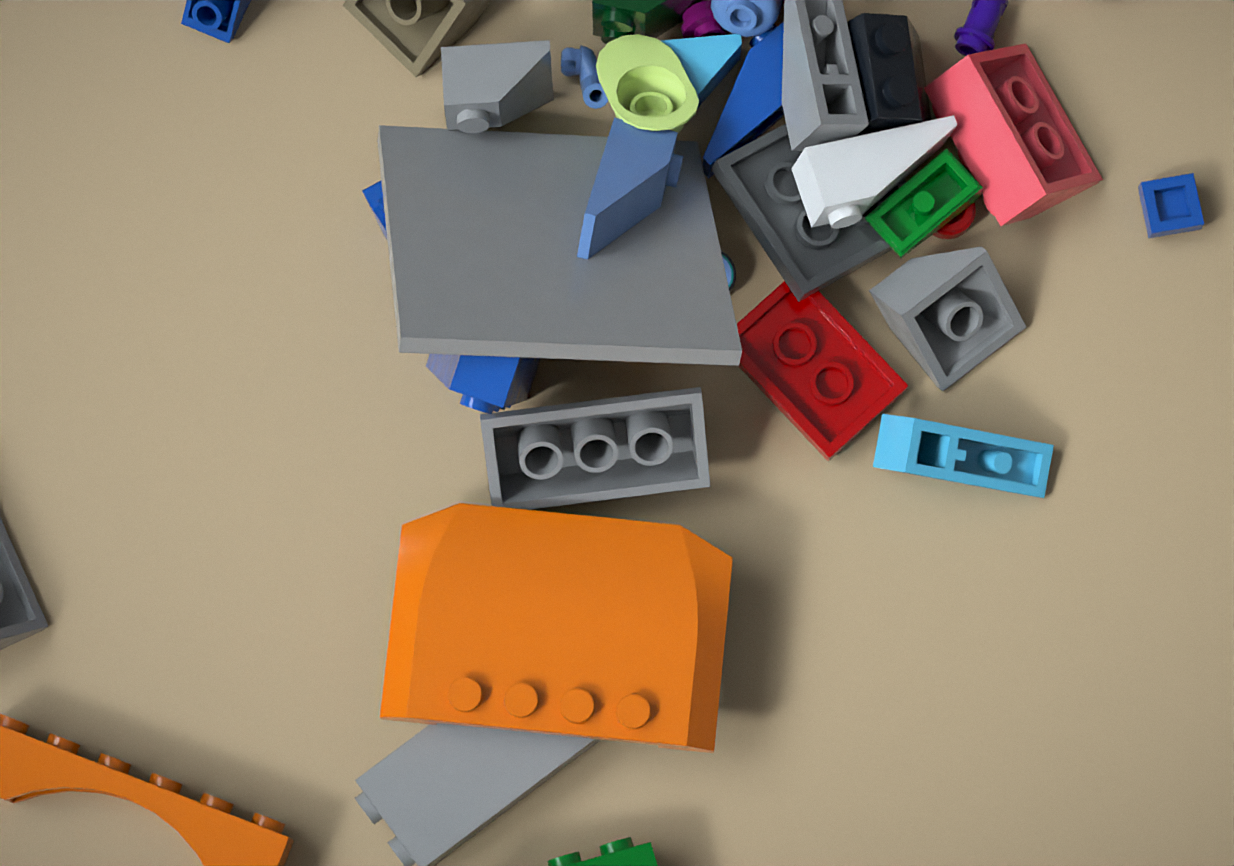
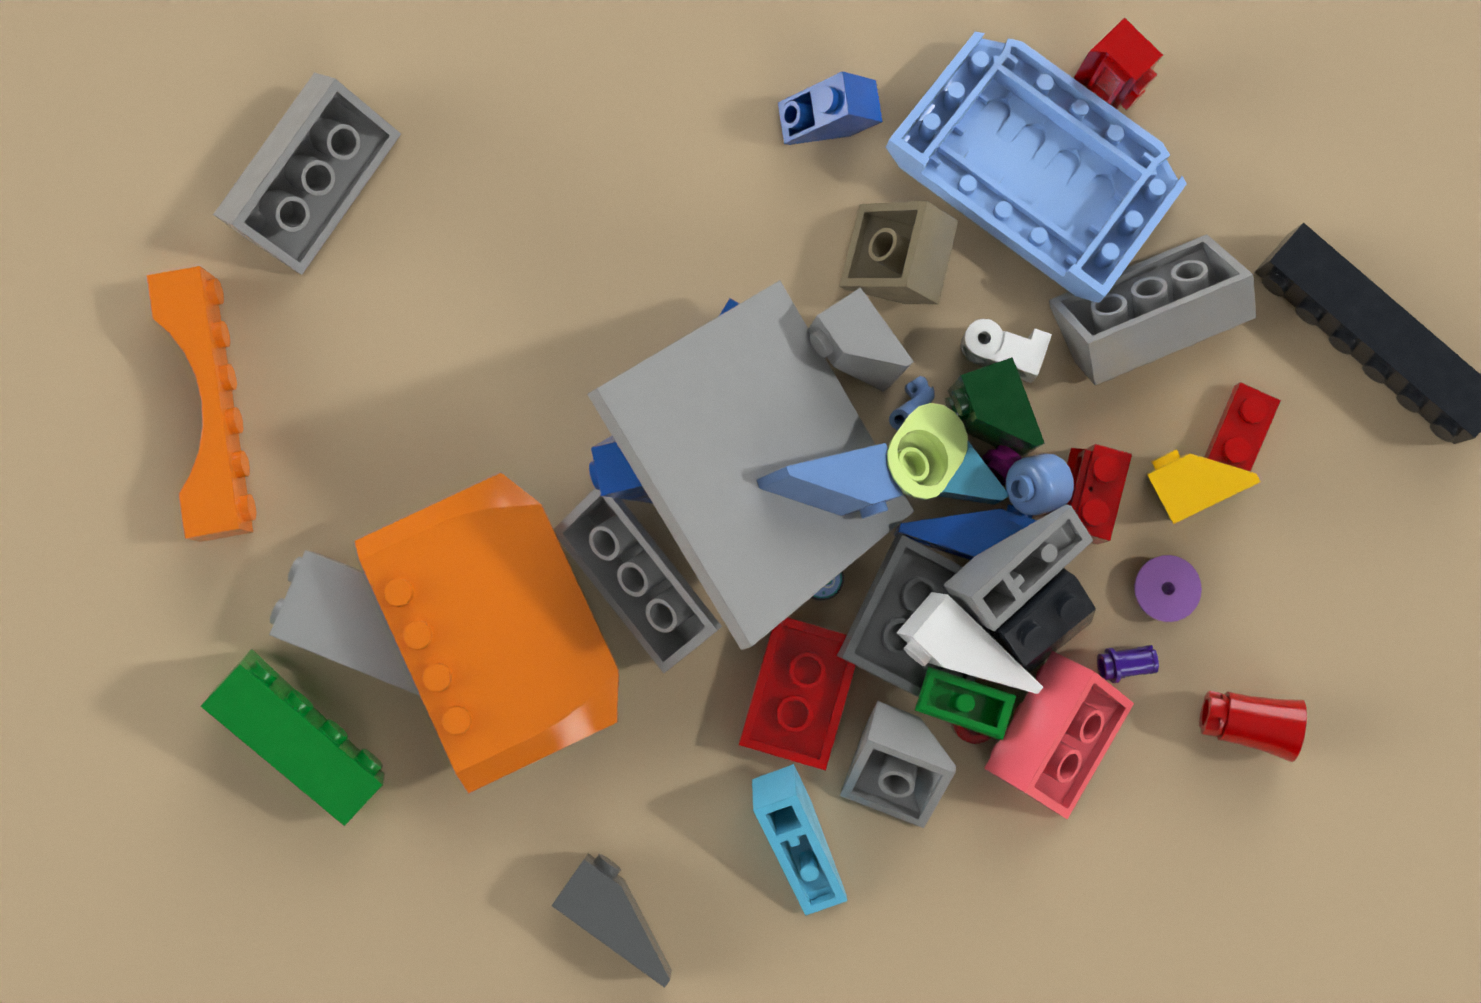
camera: 55 degrees right, 5 degrees up
(917, 689) = (607, 910): none -> dark grey slope
(1171, 205) = (1077, 882): blue plate -> none

